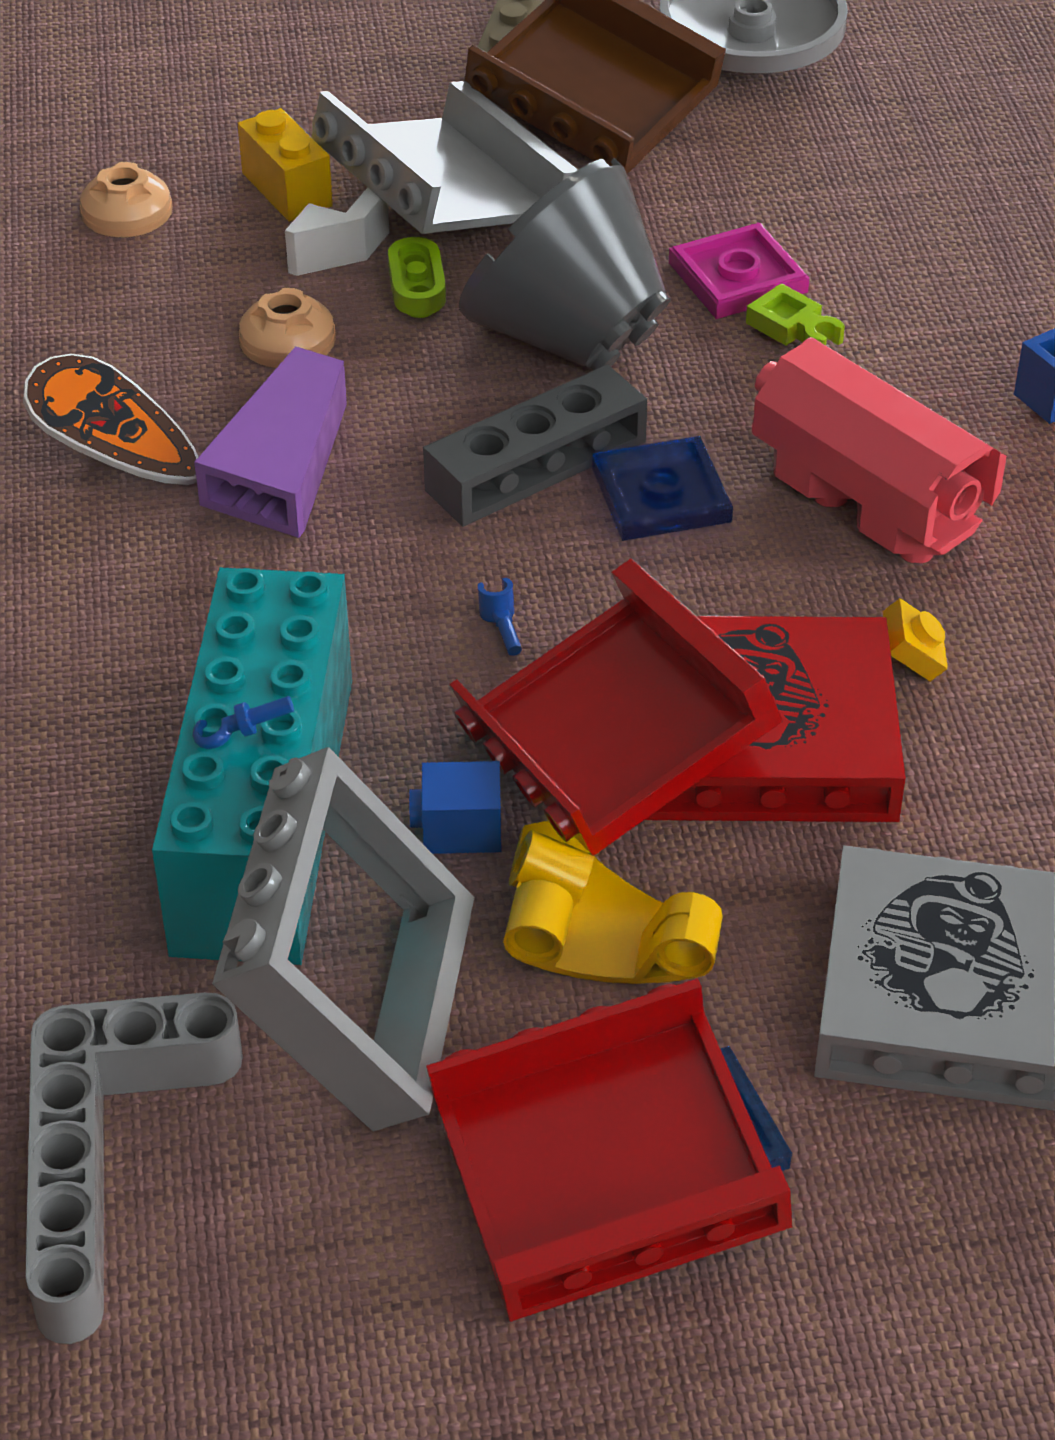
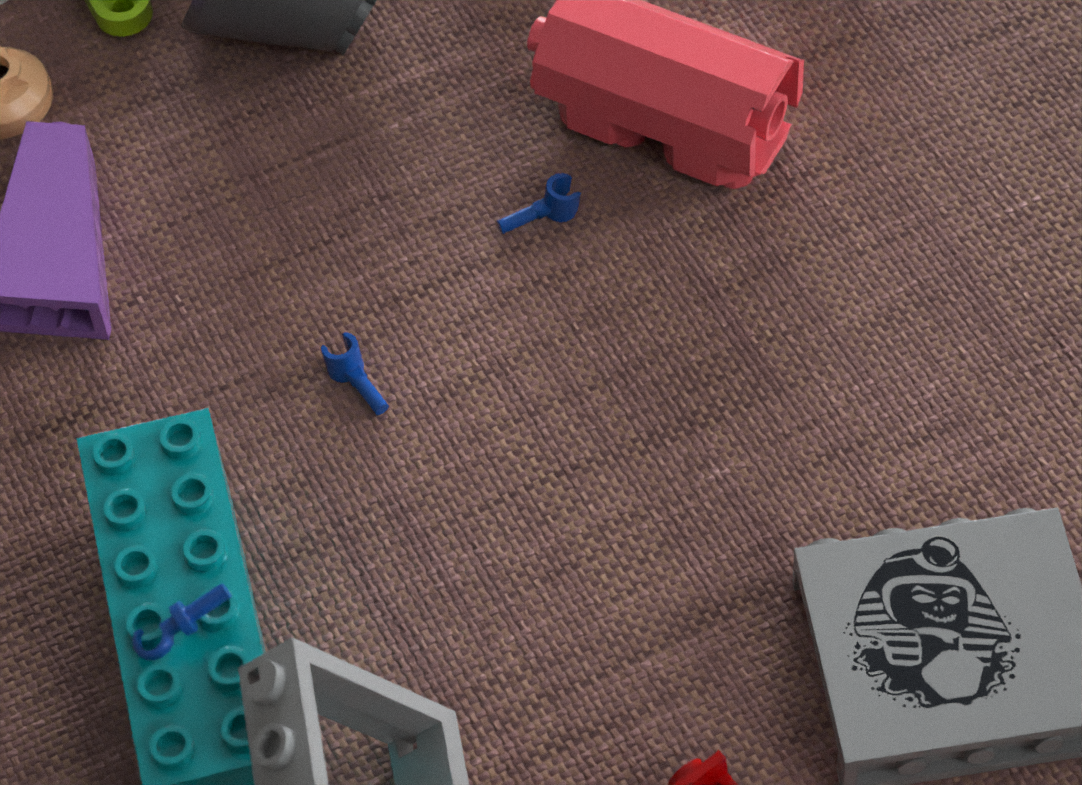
camera: 15 degrees left, 10 degrees up
(458, 807) = (400, 613): blue brick -> none
(533, 444) = (314, 164): dark grey brick -> none
(597, 927) = (580, 698): yellow panel -> none
(621, 714) = (527, 468): red panel -> none
(661, 488) = (459, 174): clear blue tile -> none
(742, 532) = (553, 205): none -> blue hand
(838, 734) = (666, 417): red panel -> none
(916, 639) = (775, 284): yellow plate -> none

